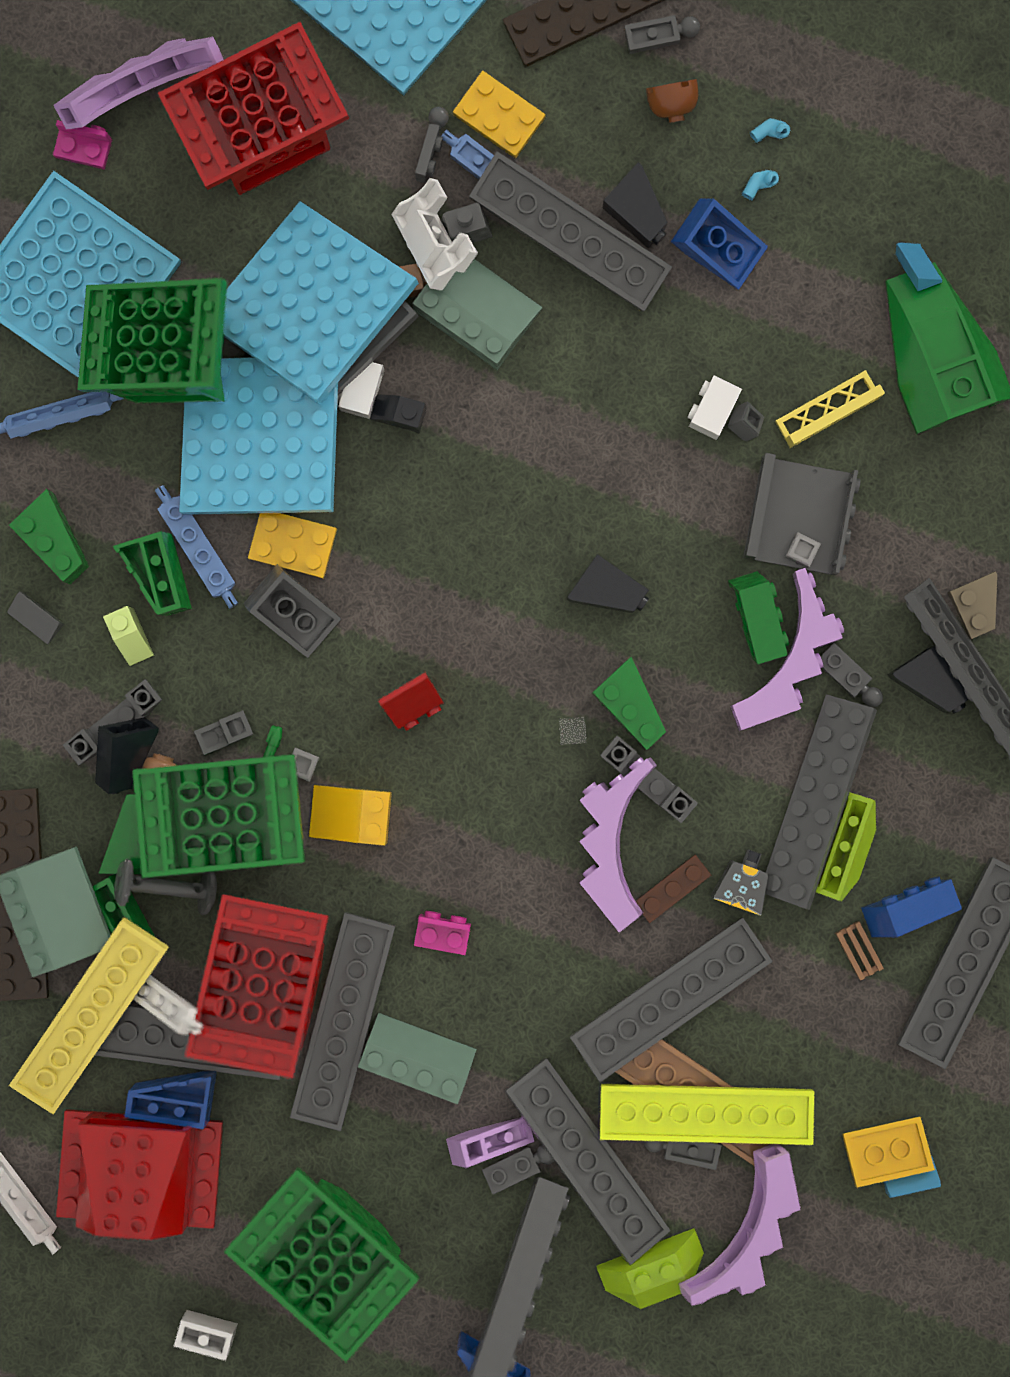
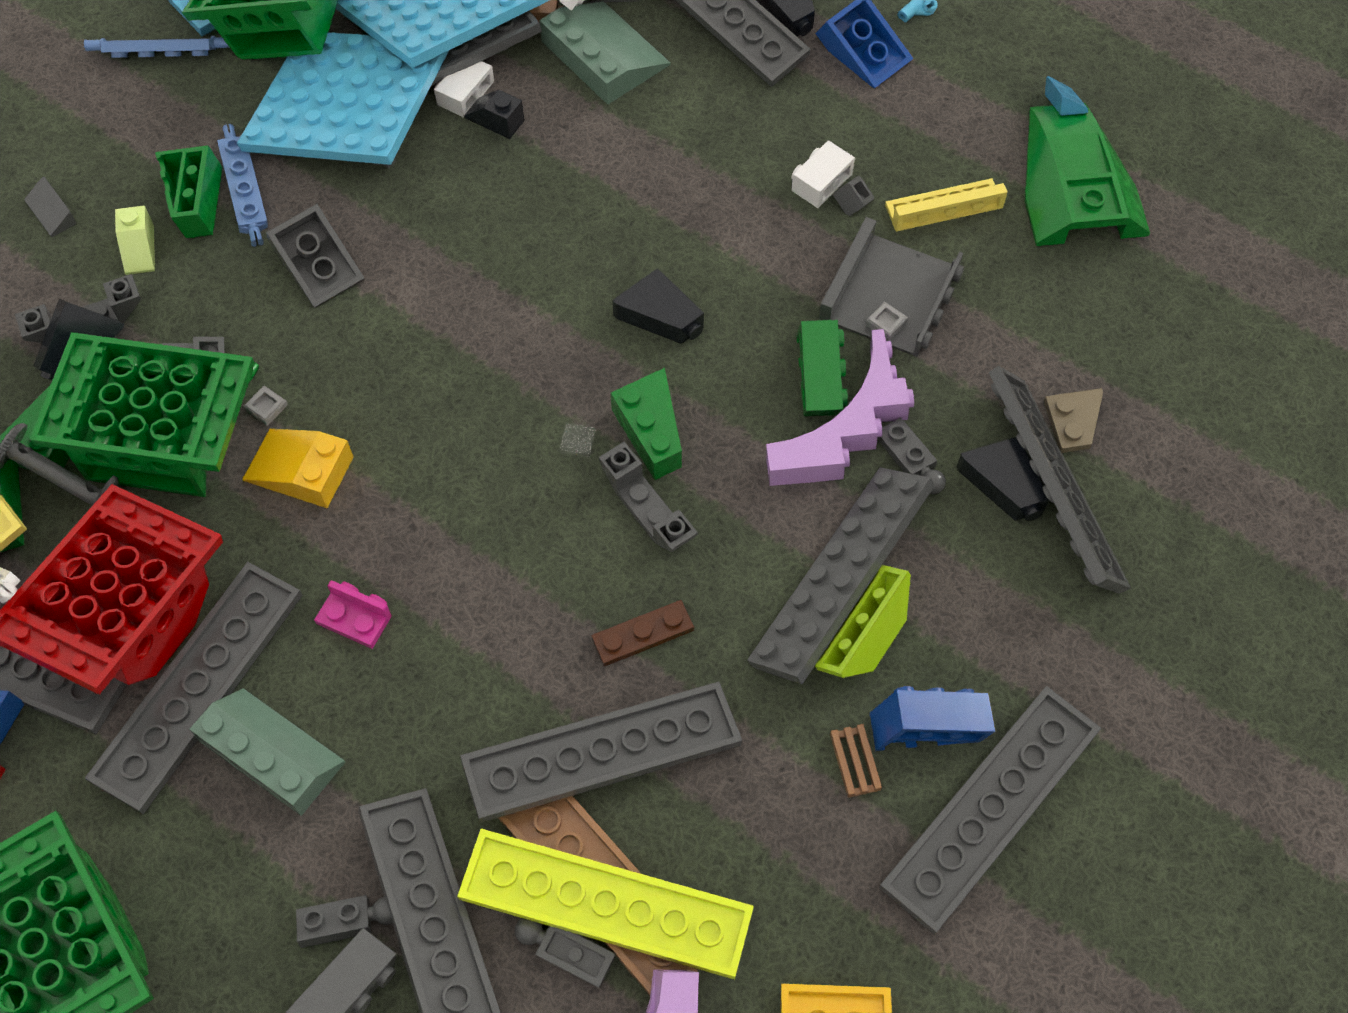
camera: 15 degrees right, 25 degrees down
(50, 537) = (100, 138): green wedge -> none
(292, 543) = (345, 201): yellow plate -> none
(412, 702) = (405, 351): red slope -> none
(488, 1142) = (317, 872): lavender slope -> none
(607, 882) = (575, 552): lavender arch -> none
(743, 884) = (727, 644): dark grey torso -> none

